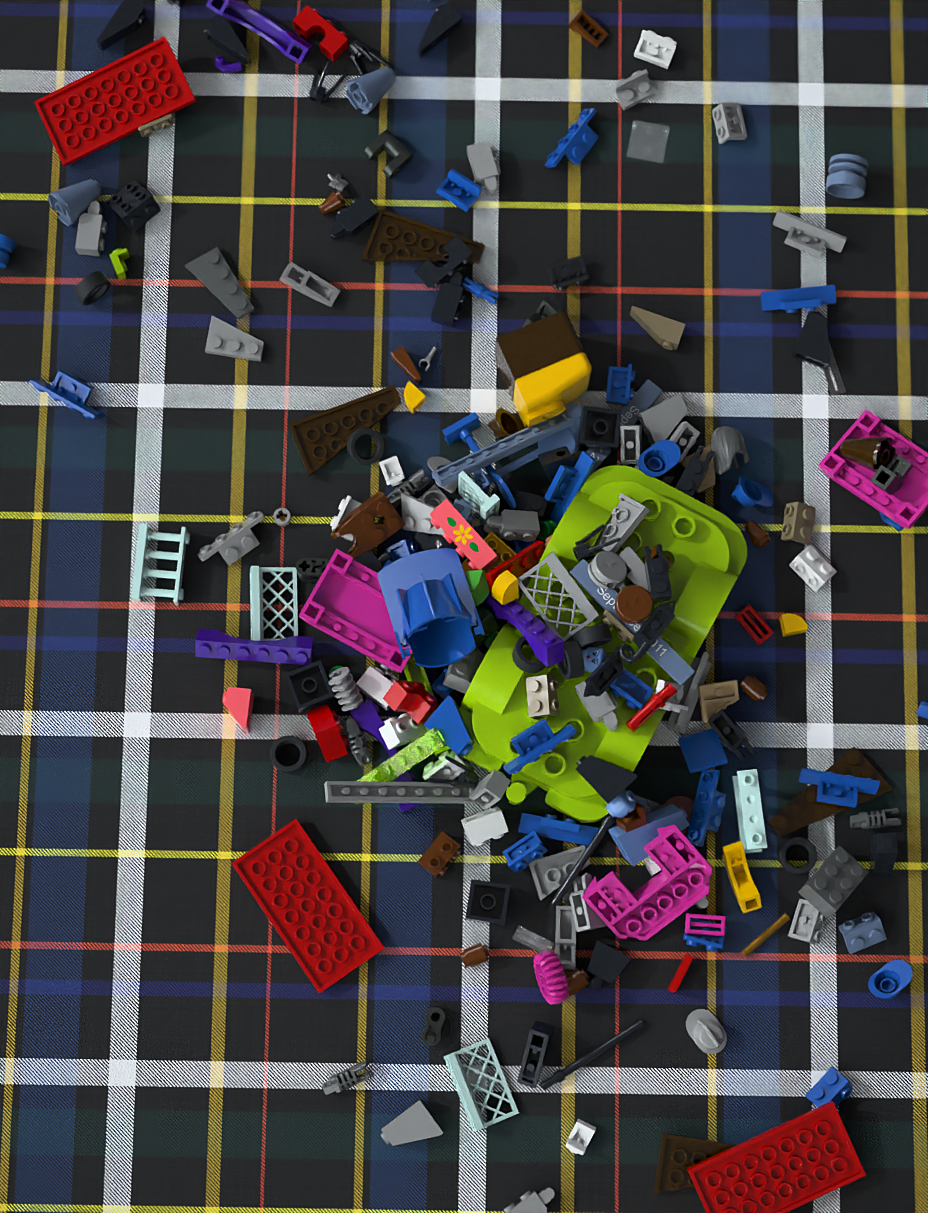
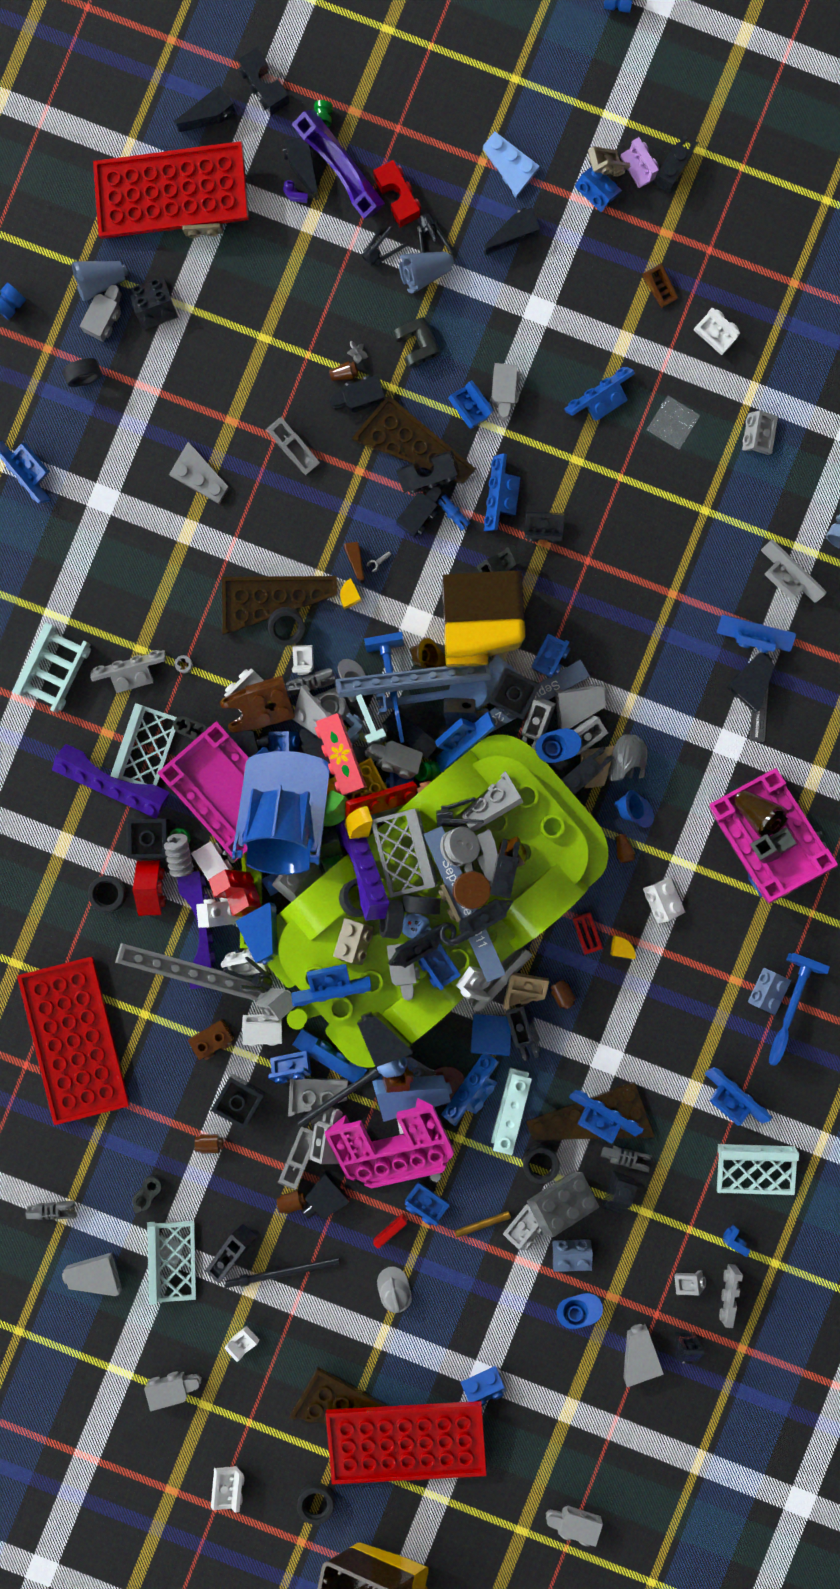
camera: 20 degrees right, 10 degrees up
(117, 258) = (116, 358): lime bracket -> none
(217, 276) = (209, 409): dark grey wing -> none
(240, 705) = (75, 834): coral slope -> none
(356, 741) = (173, 906): dark grey hinge -> none
(406, 758) = (203, 945): clear neon green plate -> none
(517, 257) = (502, 493): none -> blue bracket
(533, 940) = (265, 1153): clear slope -> none
(551, 977) = (268, 1194): dark pink gear -> none
(634, 89) = (680, 364): light grey bracket -> none
(658, 700) = (450, 992): red pin -> none
(661, 329) = (613, 617): dark tan slope -> none
(698, 924) = (436, 1191): dark pink tile -> none
(740, 877) = (480, 1167): yellow arch -> none
(798, 522) = (667, 852): dark tan bracket -> none

